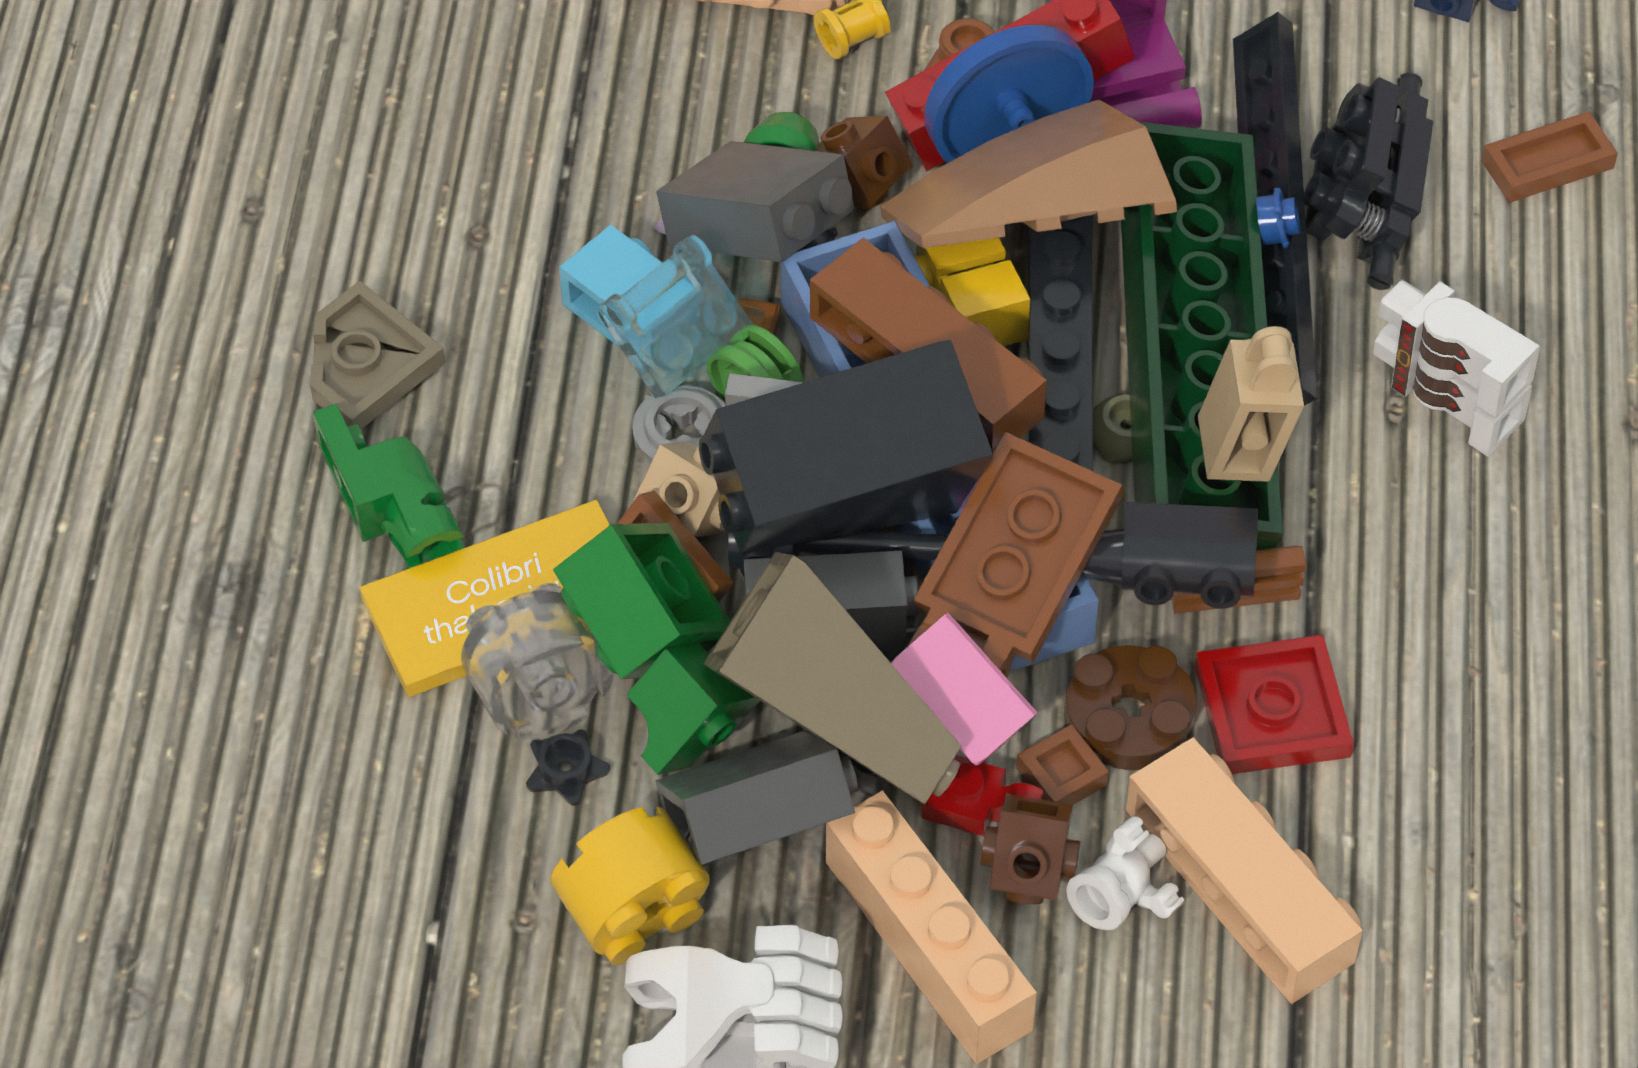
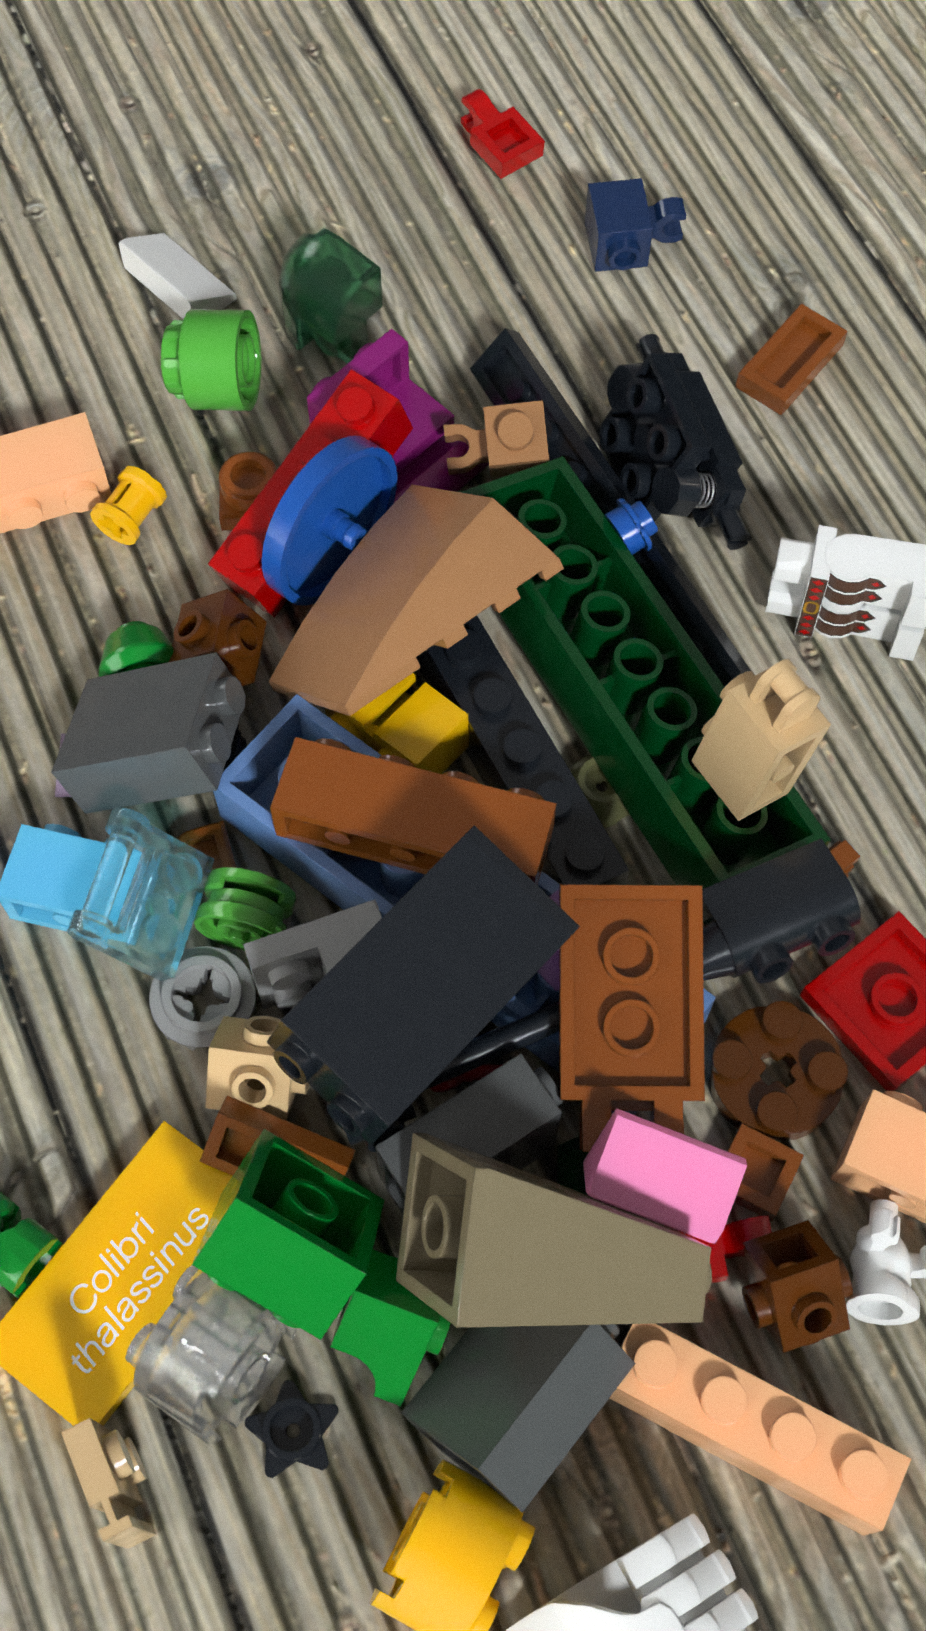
camera: 30 degrees left, 10 degrees up
(408, 708) = (109, 1476): none -> tan plate
(1213, 101) = (509, 443): none -> medium nougat brick

